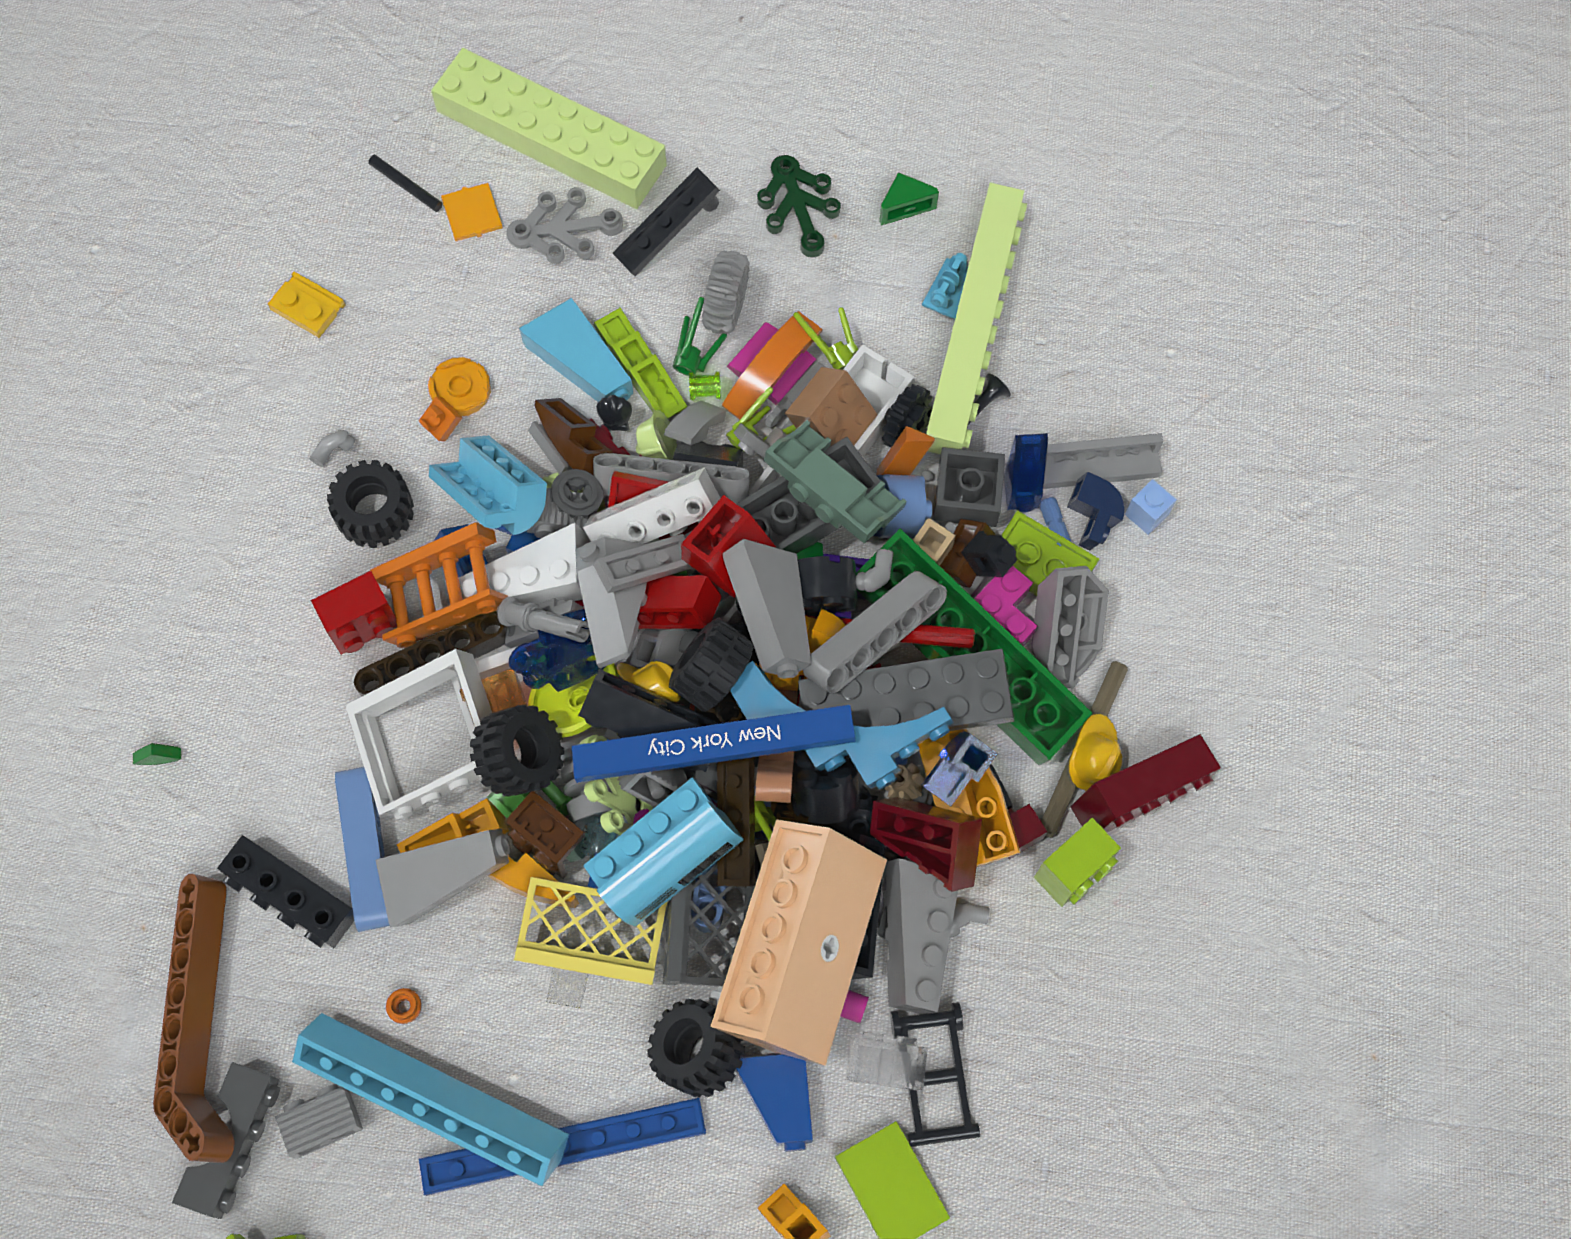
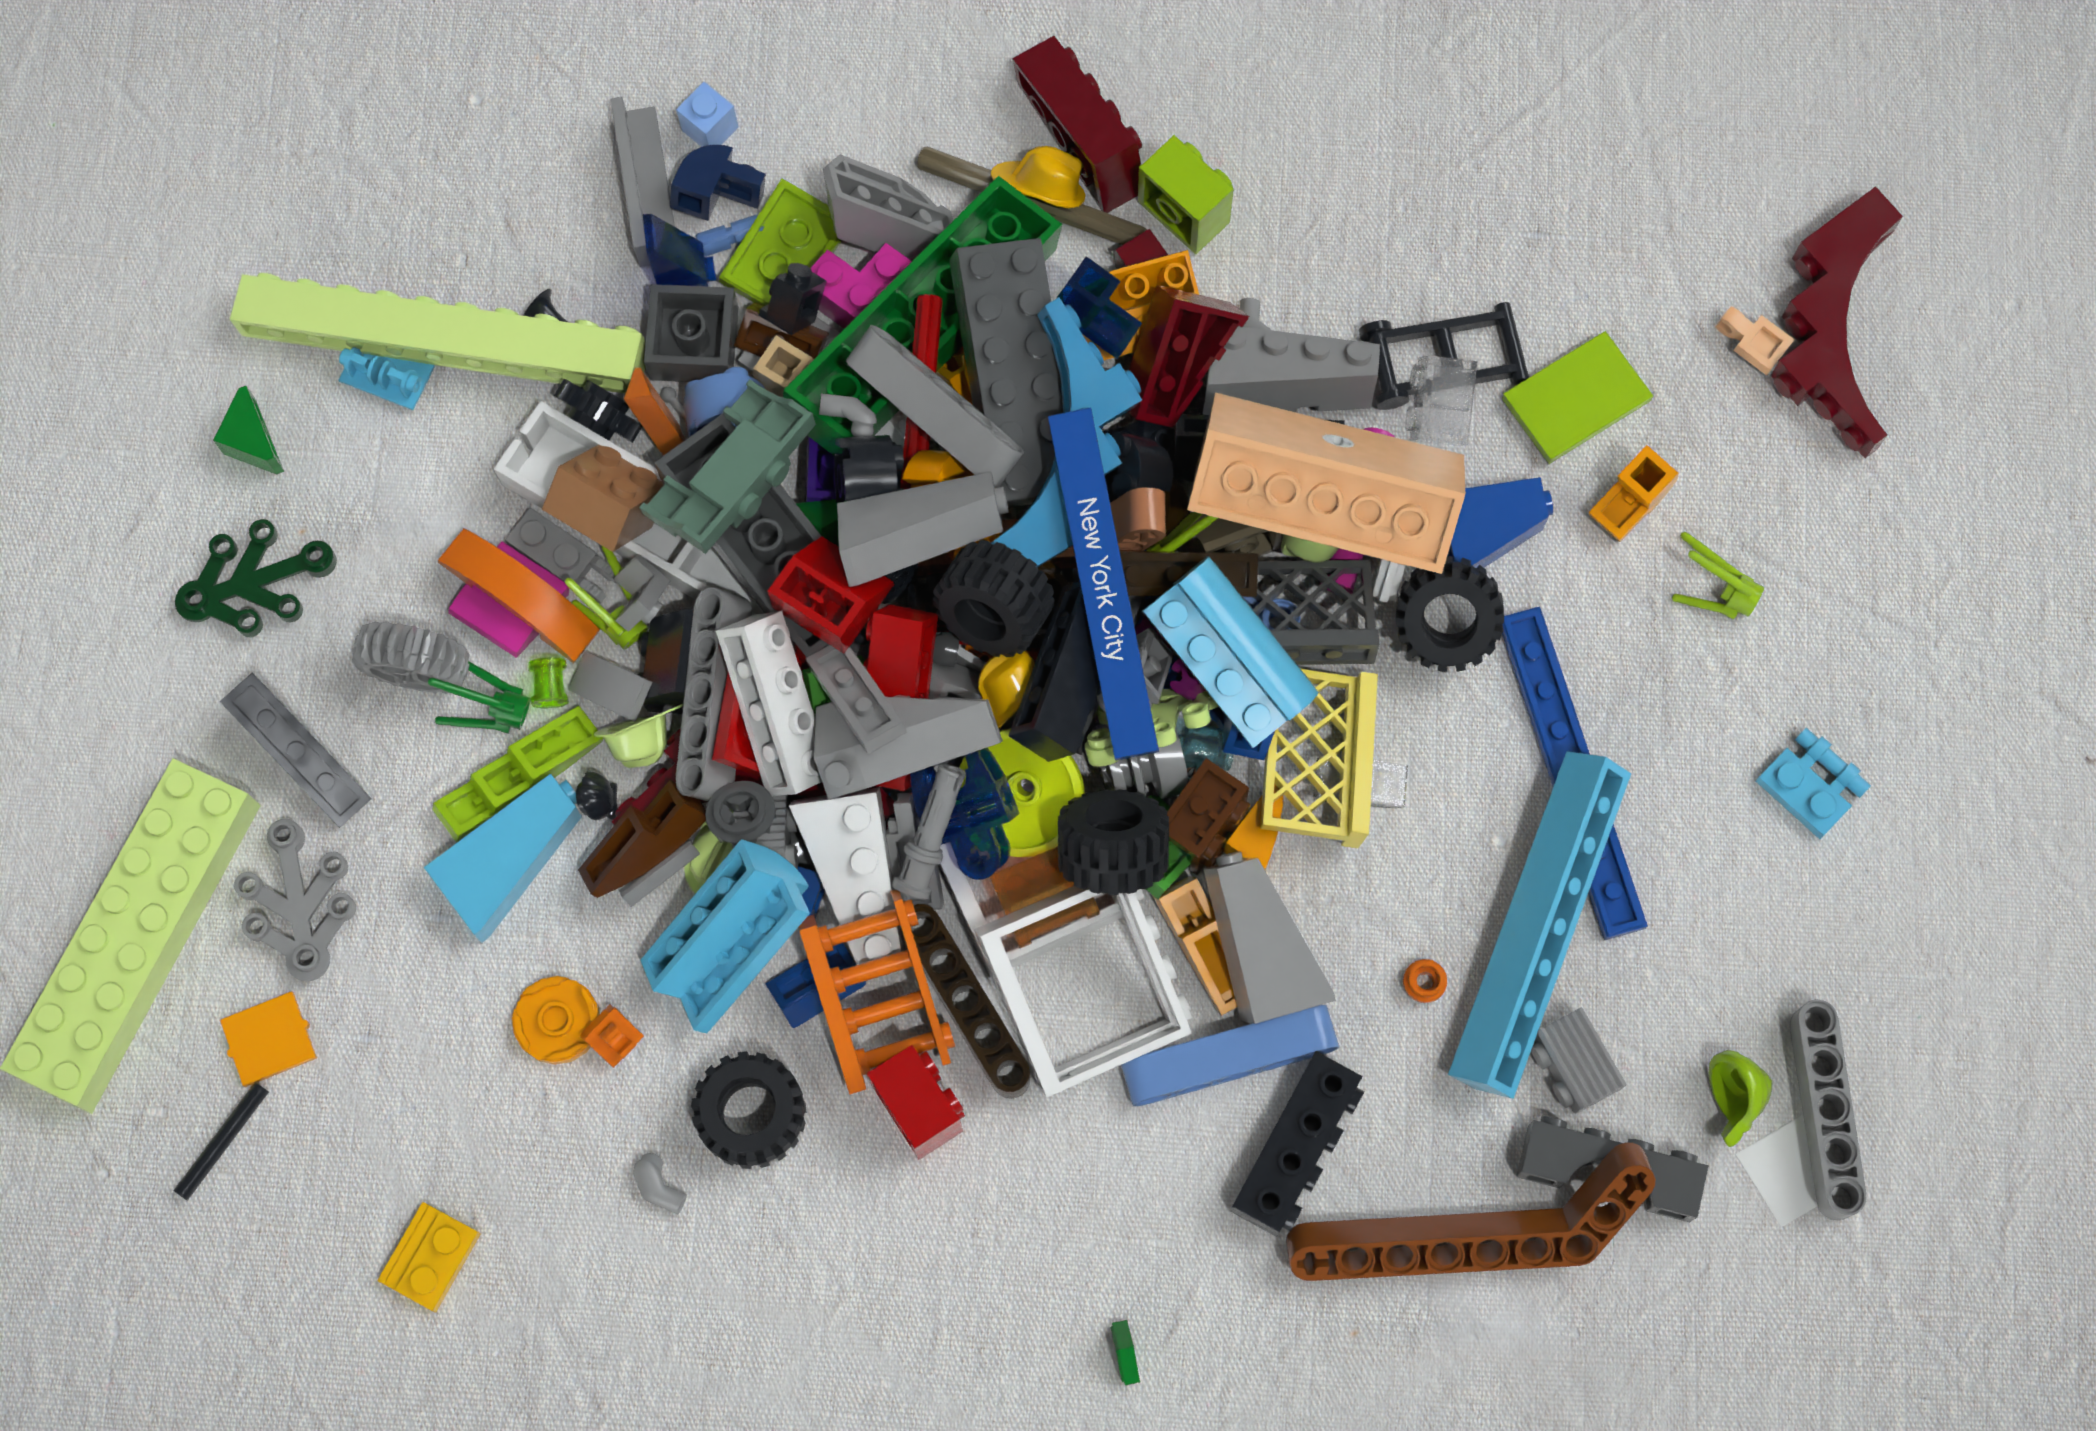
camera: 90 degrees left, 5 degrees up
(838, 353) = (499, 508): lime plant -> none

